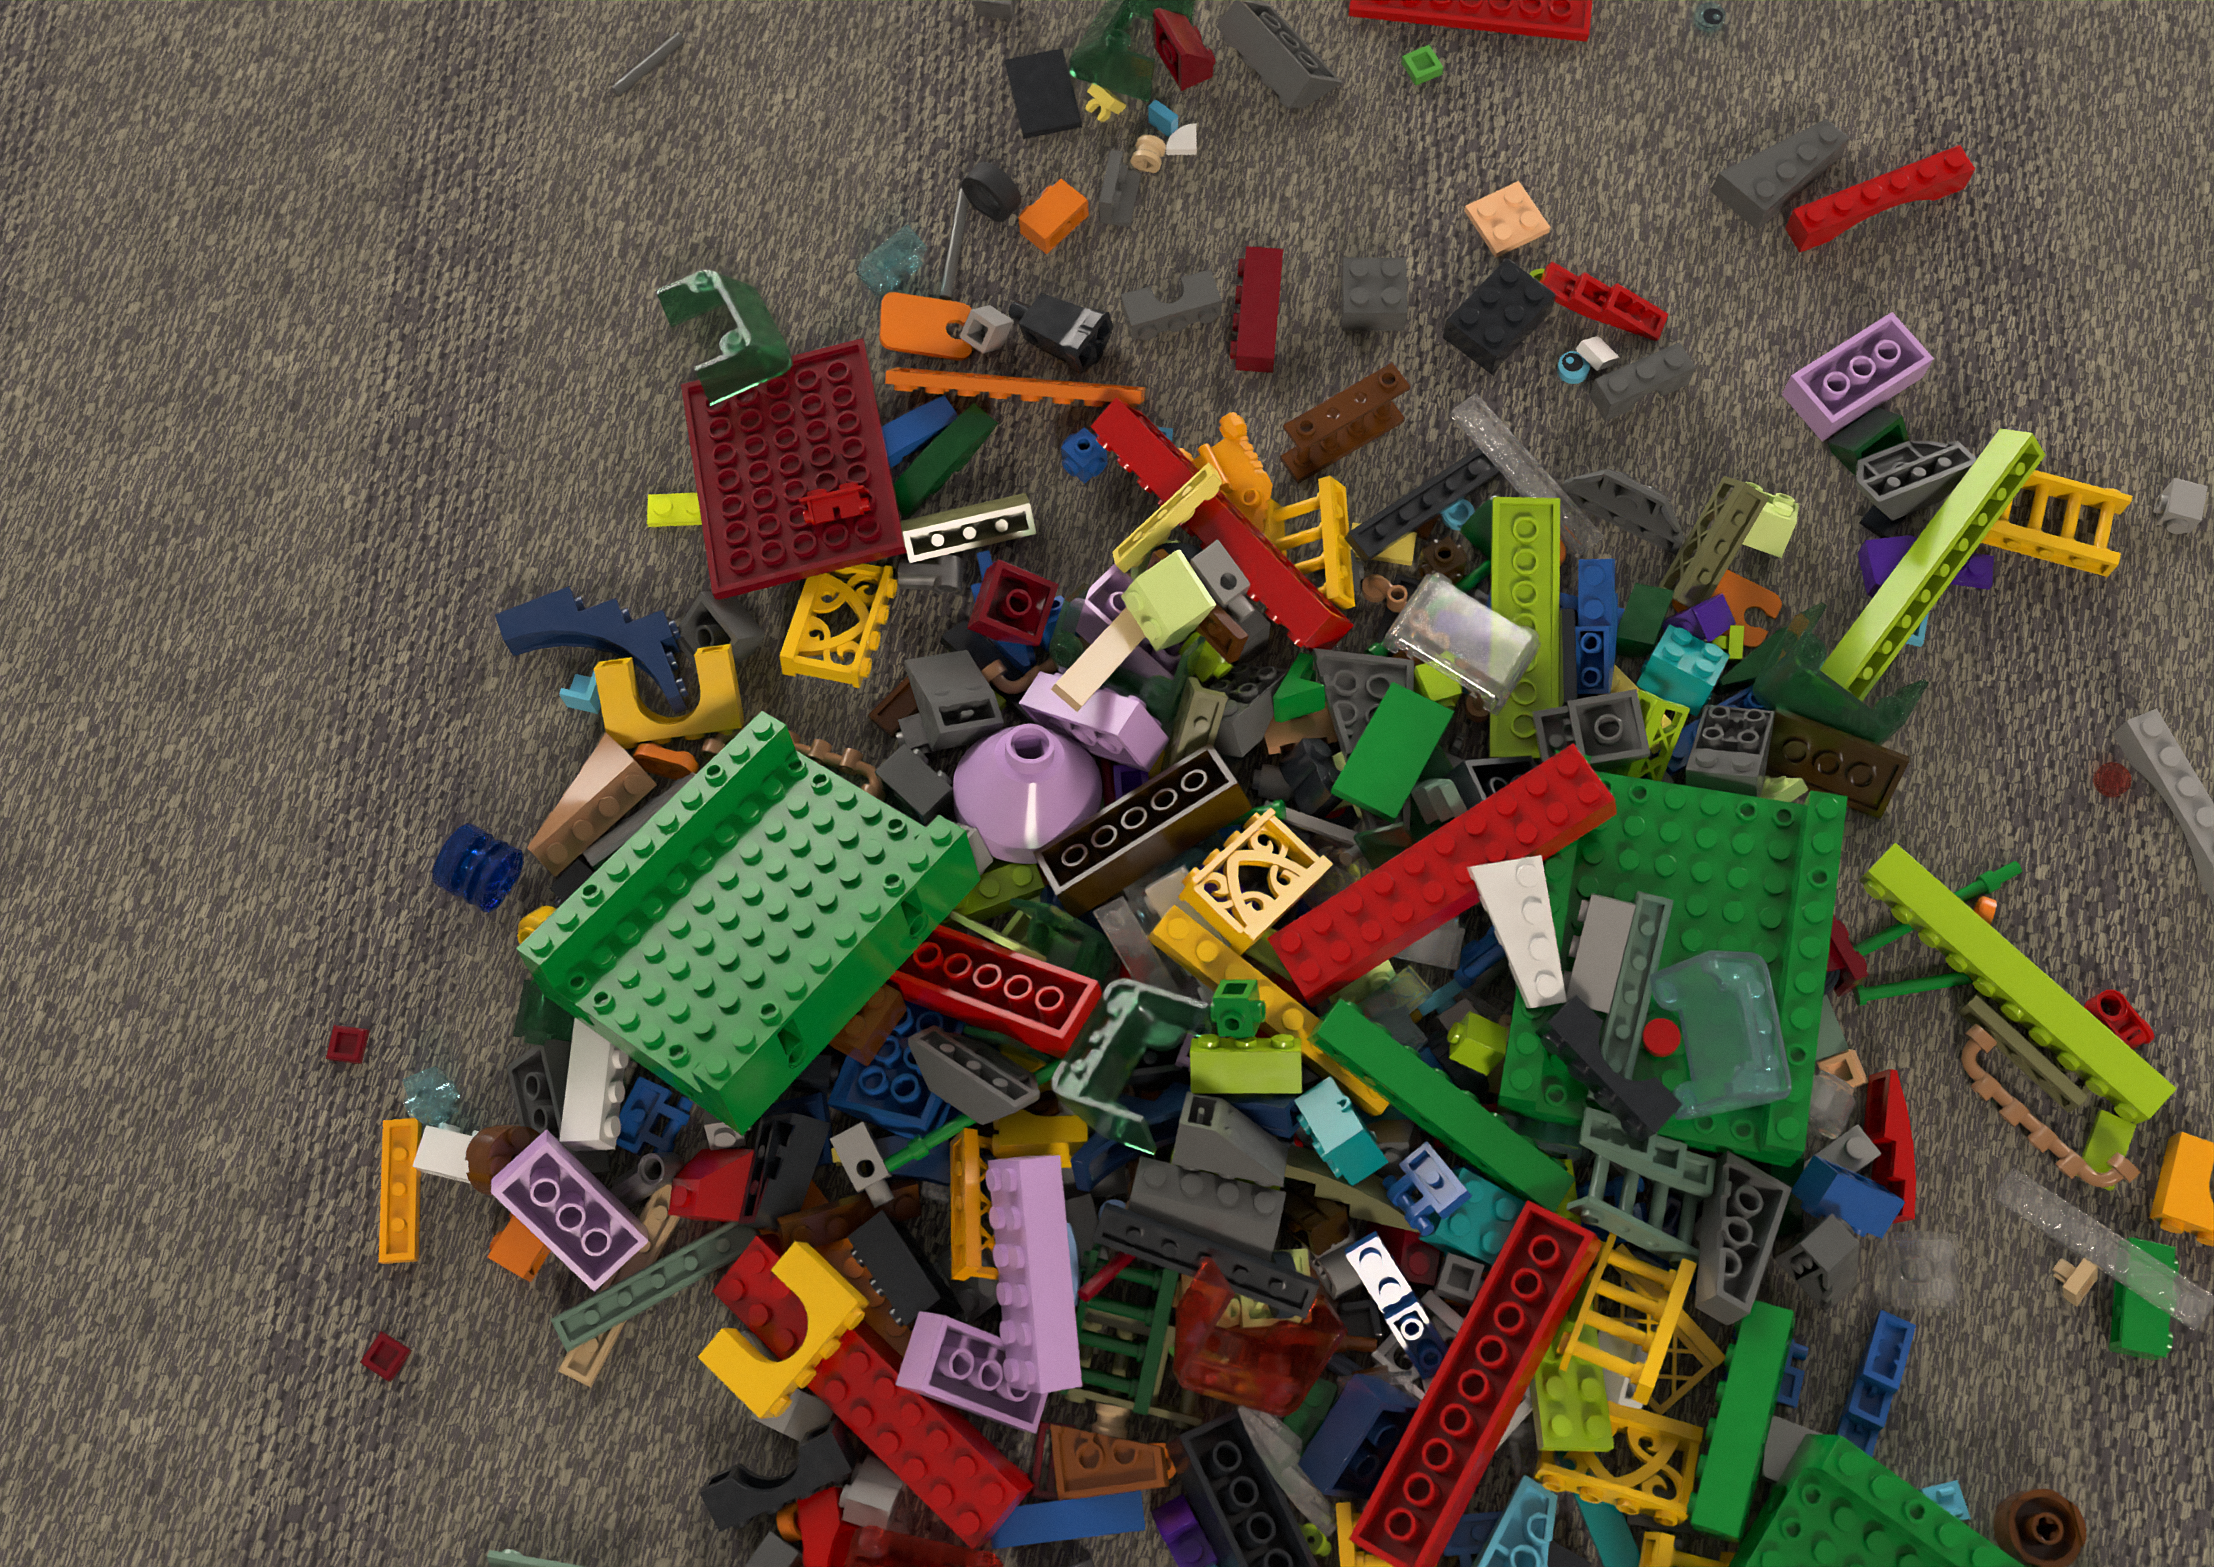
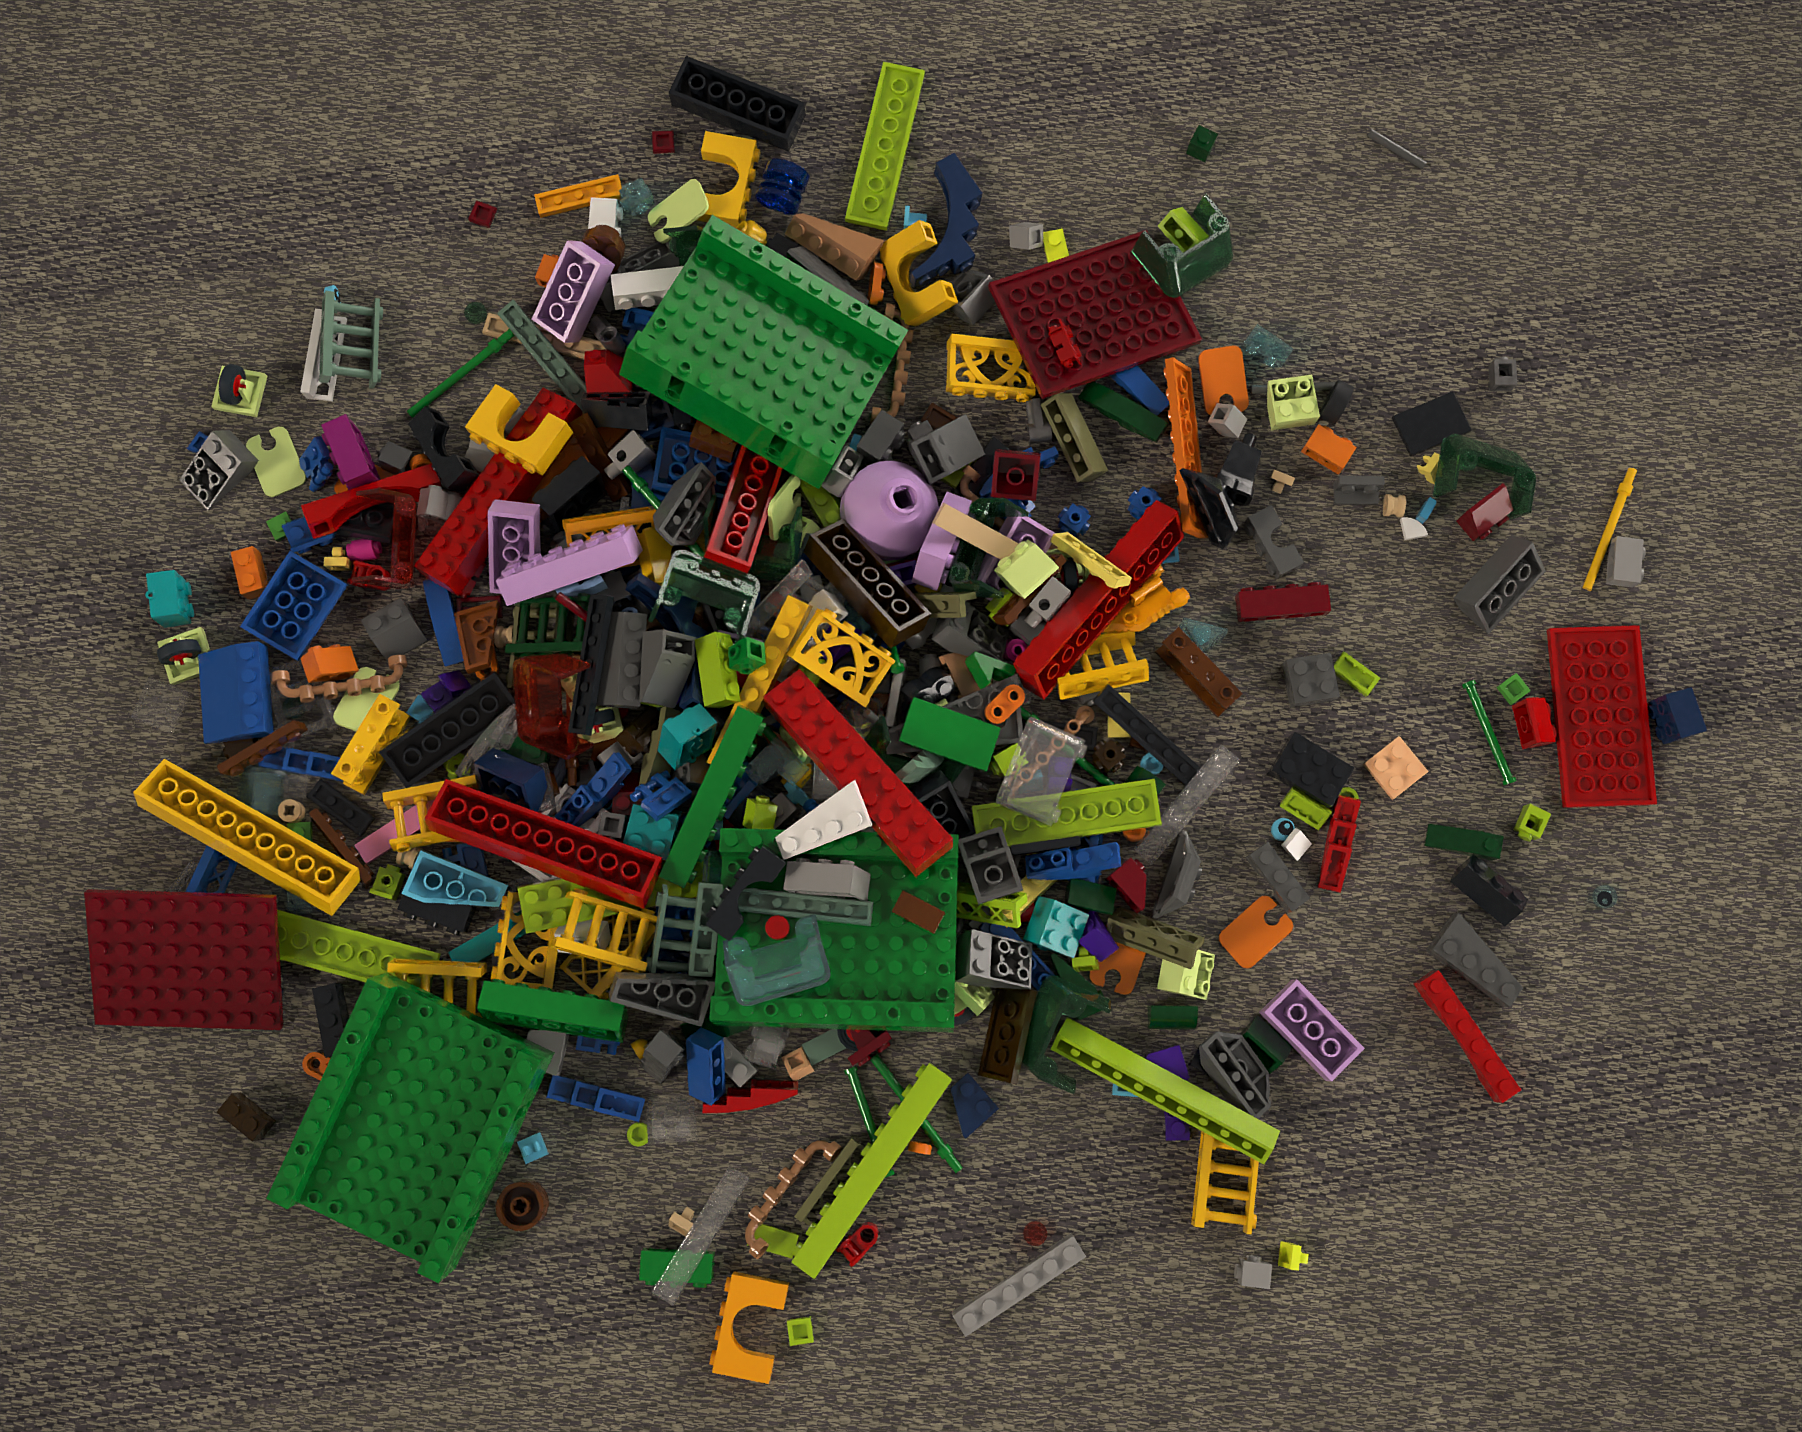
camera: 75 degrees right, 10 degrees up
(321, 916) = (737, 103): none -> black brick
(408, 925) = (741, 155): none -> yellow arch
(452, 715) = (885, 146): none -> lime plate
(470, 1025) = (680, 208): none -> yellowish green piece
(552, 1393) = (475, 312): none -> clear green tile
(574, 291) = (1201, 143): none -> dark green brick
(619, 1367) = (494, 345): none -> green bar
(646, 543) = (1026, 235): none -> light grey panel
(697, 335) = (1182, 229): none -> lime brick
(978, 246) = (1292, 402): none -> yellowish green slope
(1085, 281) = (1281, 480): none -> tan tile
(1090, 550) = (1078, 527): none -> blue brick
(1115, 359) = (1212, 506): none -> black wedge
(1269, 653) = (1009, 653): none -> dark pink brick
(1293, 402) = (1202, 634): none -> clear light blue slope
(1355, 670) = (1004, 703): none -> orange plate
(1373, 239) = (1355, 674): none -> lime plate
(1474, 49) = (1534, 723): none -> red slope
(1477, 103) = (1489, 733): none -> green bar
(1549, 333) = (1305, 808): none -> lime plate
(1604, 75) = (1537, 817): none -> lime brick
(1620, 155) = (1464, 841): none -> dark green slope
(1637, 559) = (1130, 883): none -> dark red slope
(1660, 830) = (918, 912): none -> reddish brown tile
(1689, 137) = (1489, 890): none -> black brick
(1716, 432) = (1250, 937): none -> orange piece
(1801, 1303) = (638, 1047): none -> yellow hinge
(1820, 546) = (1172, 1017): none -> dark green brick
(1924, 833) = (971, 1104): none -> dark blue wing
(1933, 1330) = (637, 1134): none -> lime tile
(2159, 457) = (1291, 1256): none -> neon yellow tile

